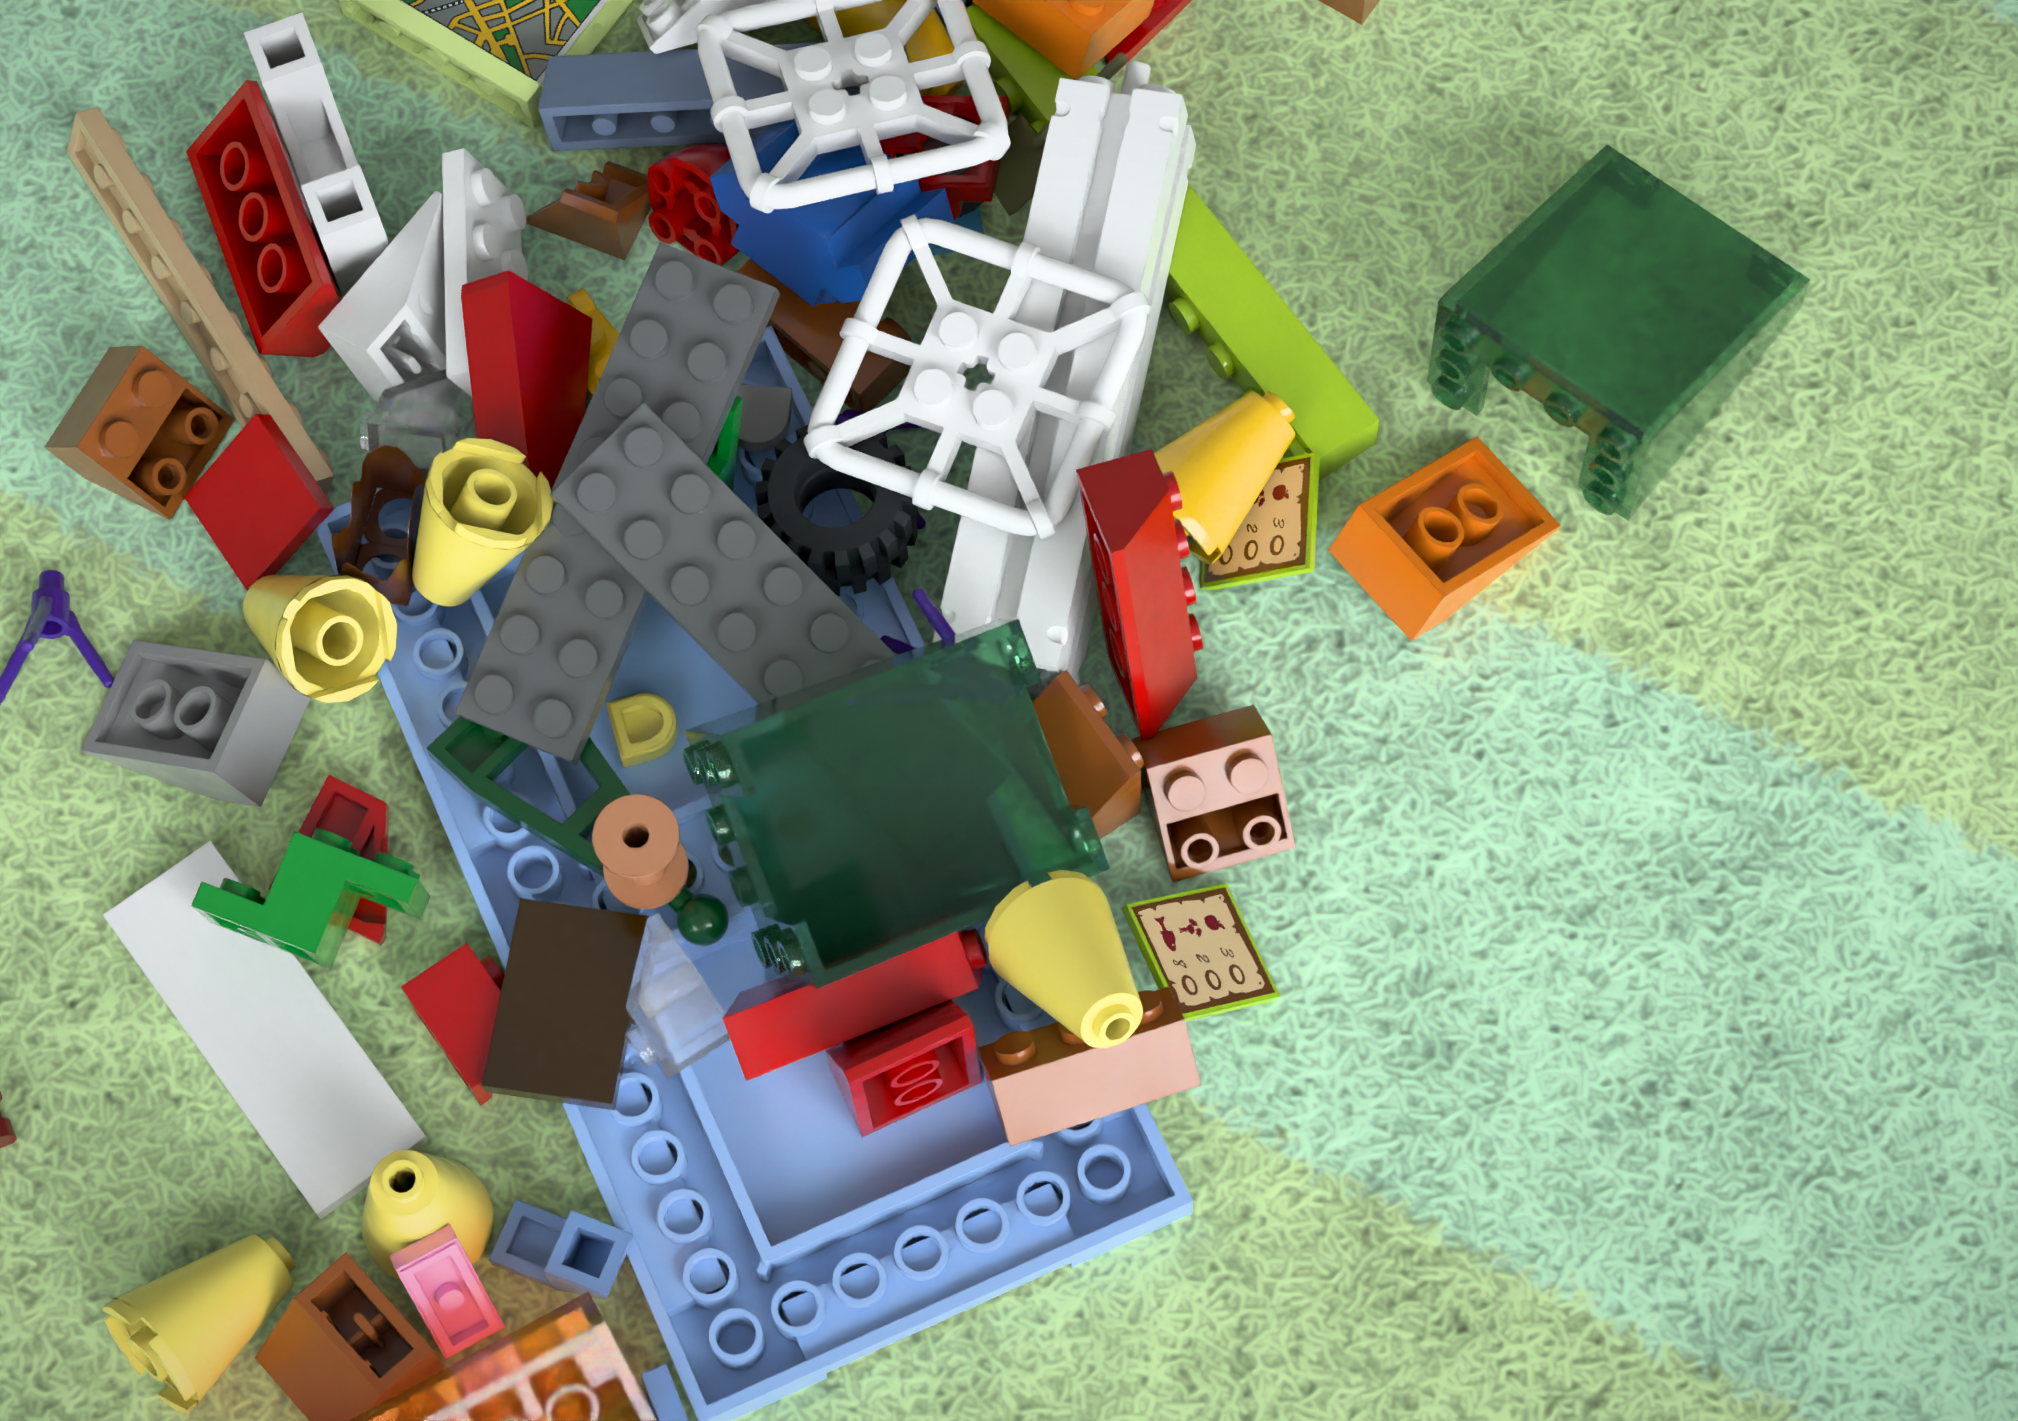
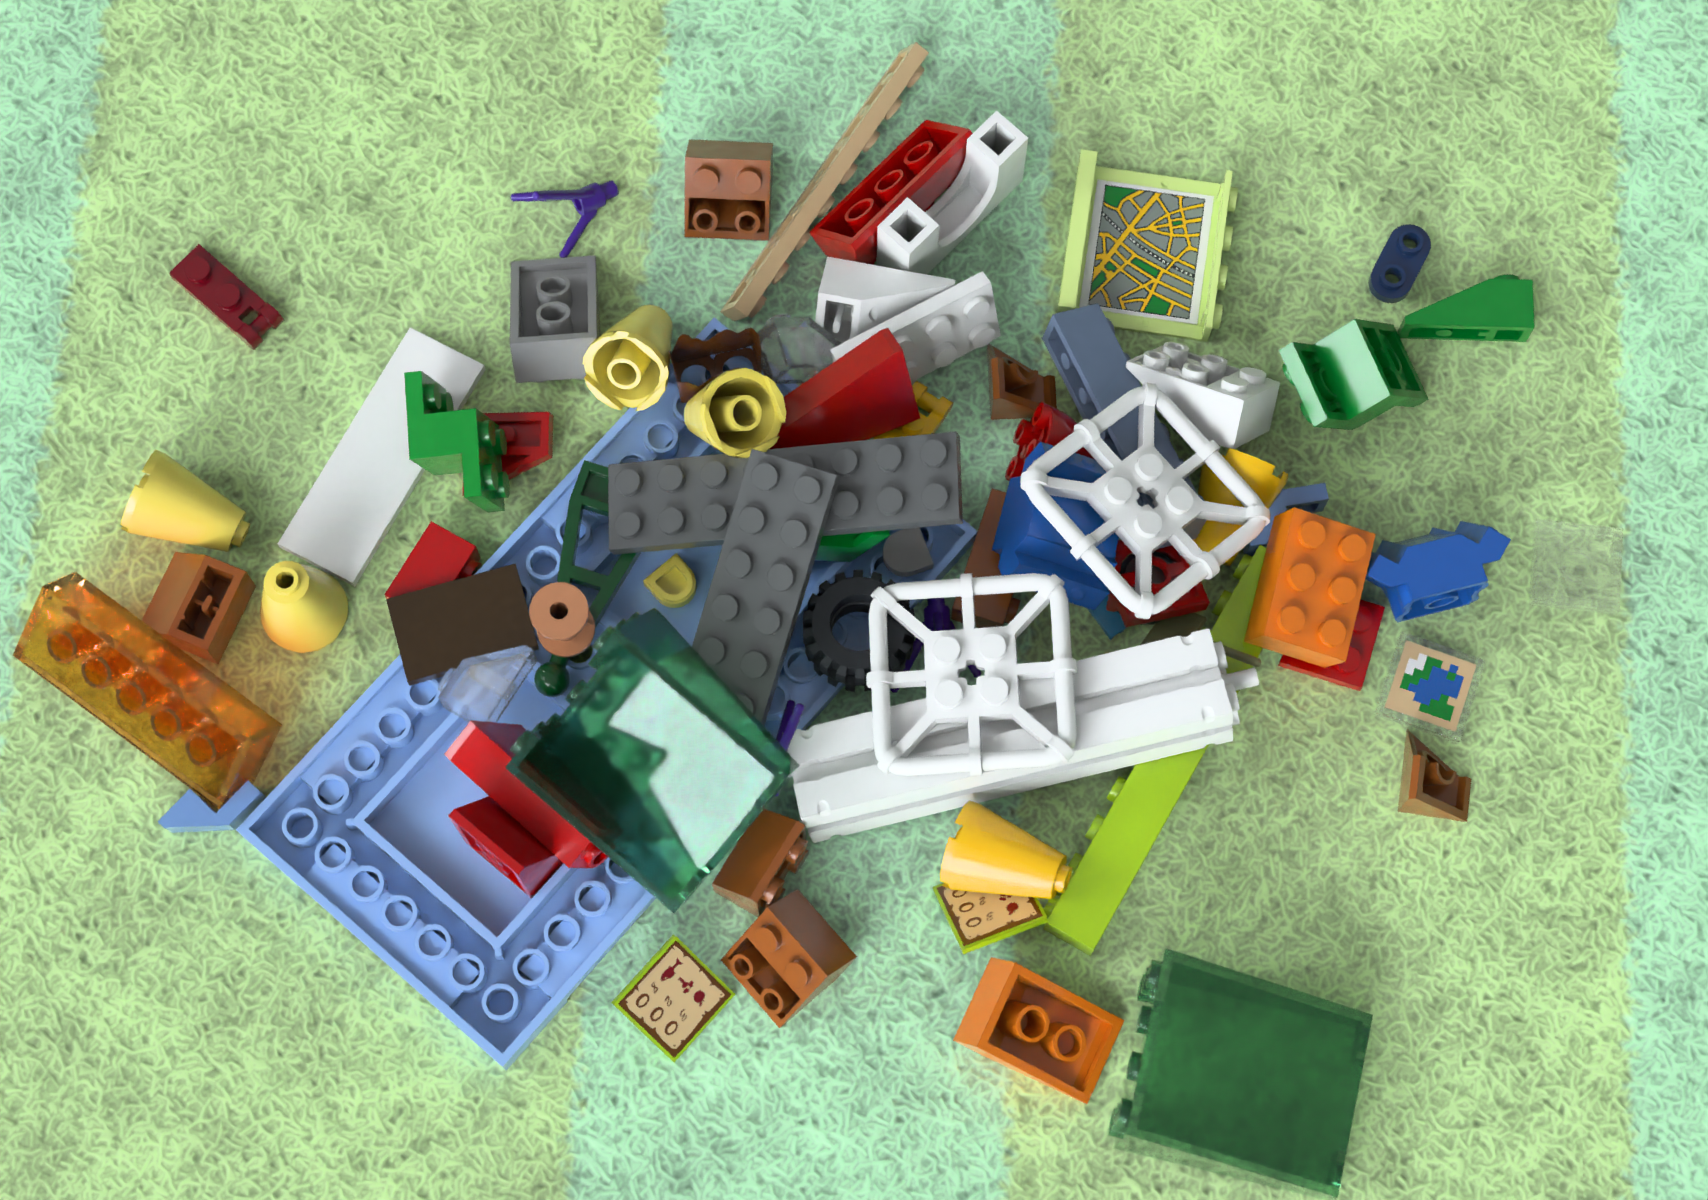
camera: 60 degrees right, 5 degrees up
(258, 501) = (711, 281): red tile -> none
(447, 1291) = (253, 642): bright pink plate -> none
(561, 1252) = (314, 696): medium blue slope -> none
(1057, 1081) = (550, 960): brick -> none
(1066, 956) = (599, 915): light yellow cone -> none
(1142, 583) = (881, 846): red slope -> none

